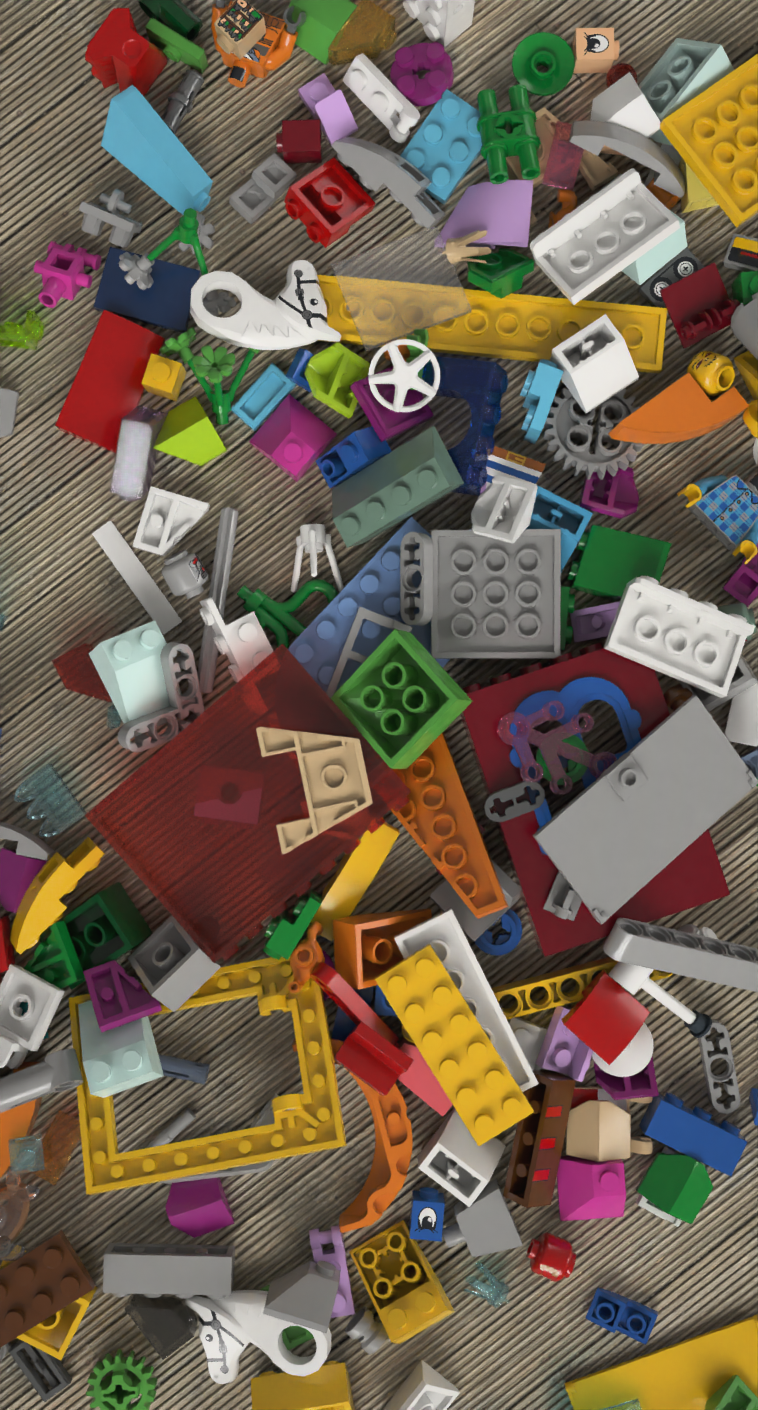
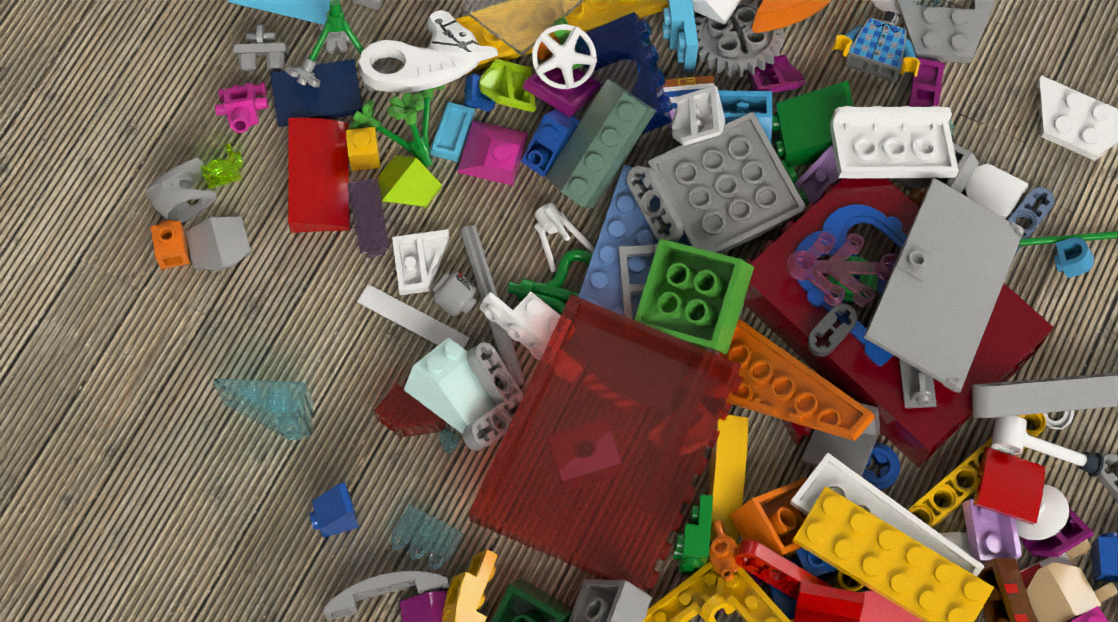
camera: 25 degrees left, 20 degrees down
(331, 777) = (668, 381): tan wing -> none

